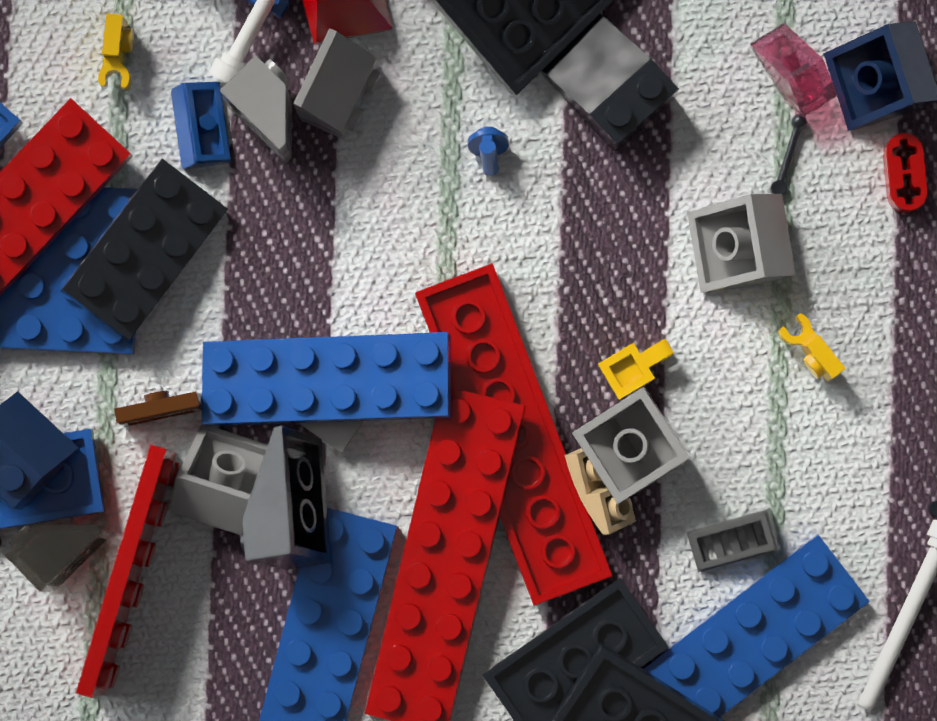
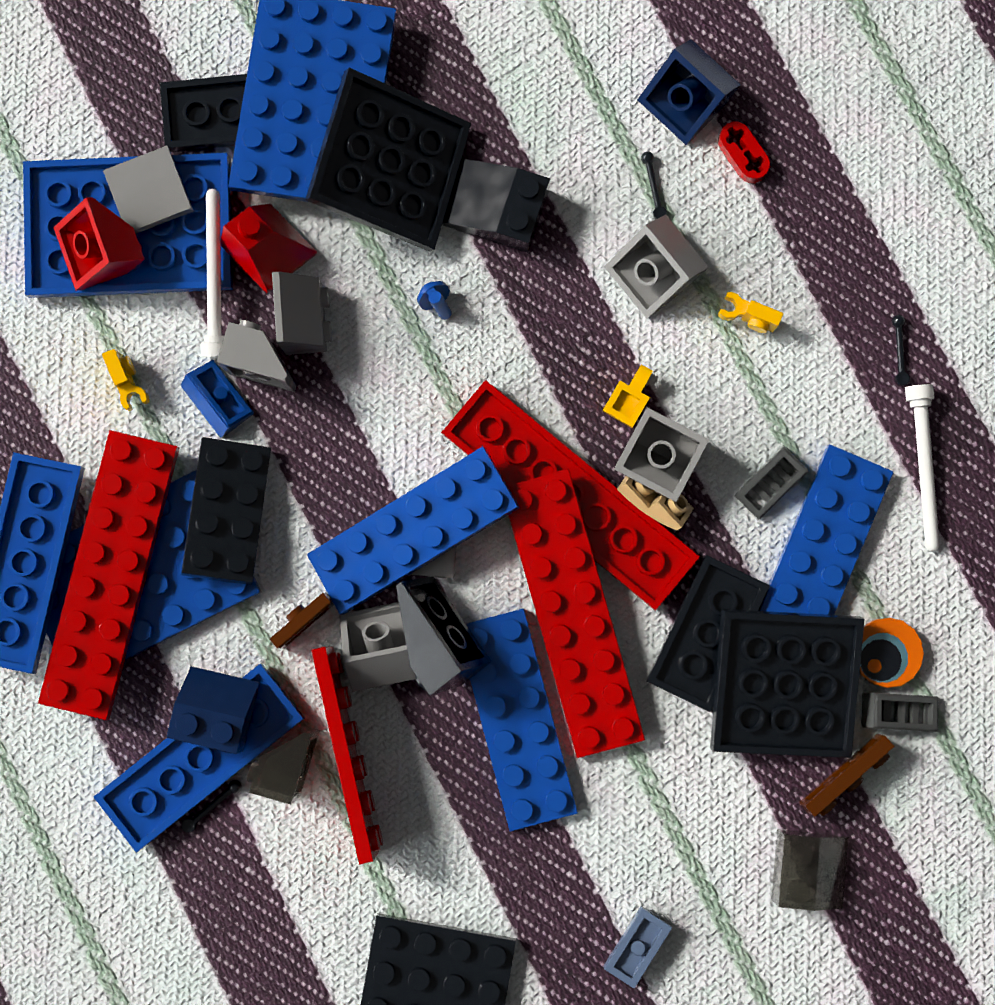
camera: 30 degrees left, 0 degrees up
(795, 69) = (624, 121): clear pink slope -> none

